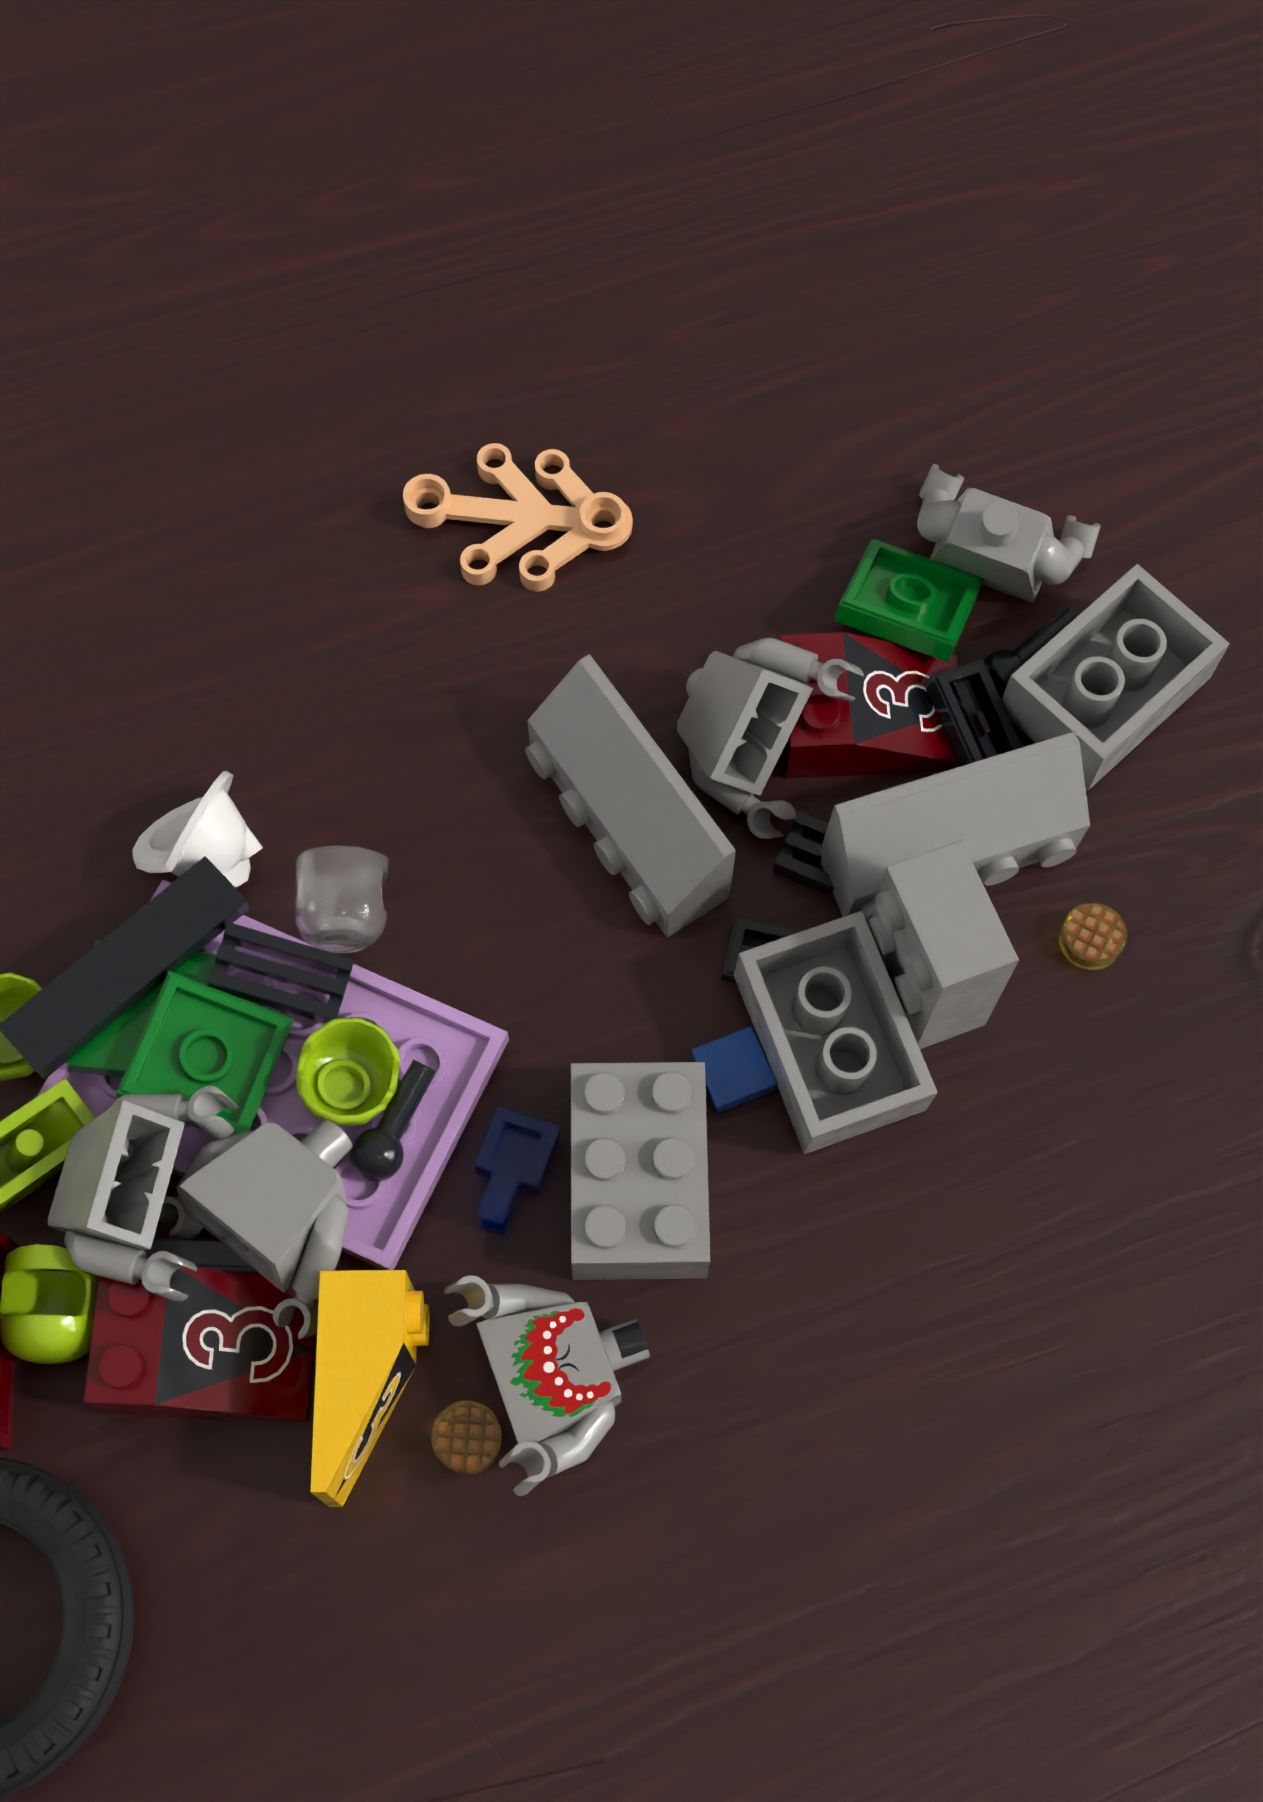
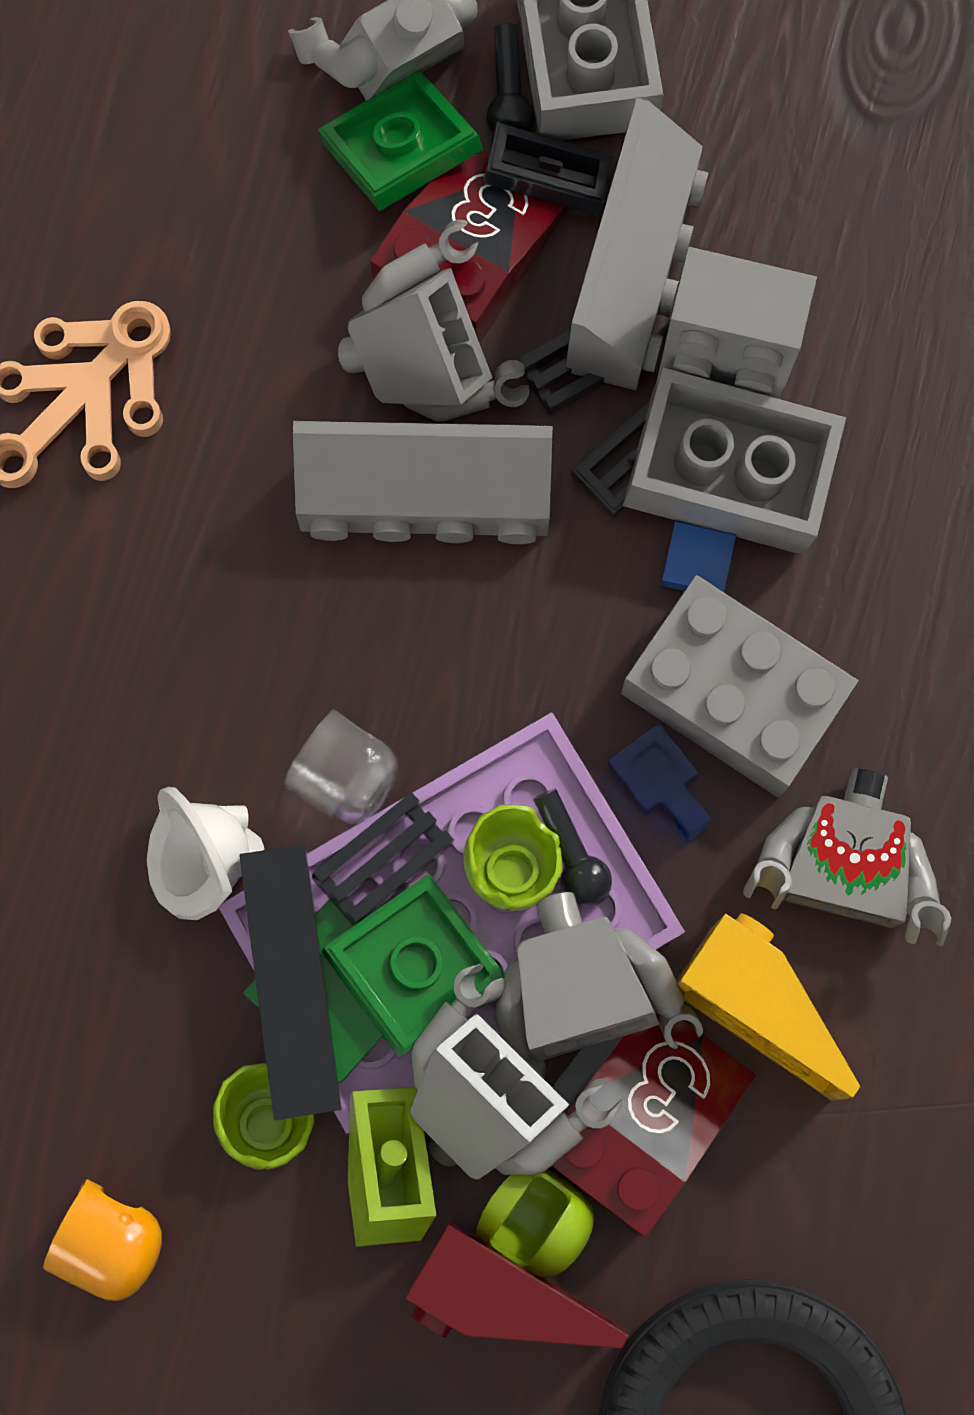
camera: 55 degrees left, 10 degrees up
(466, 1437) = (851, 959): clear yellow tile -> none
(1092, 936) = (779, 214): tile -> none

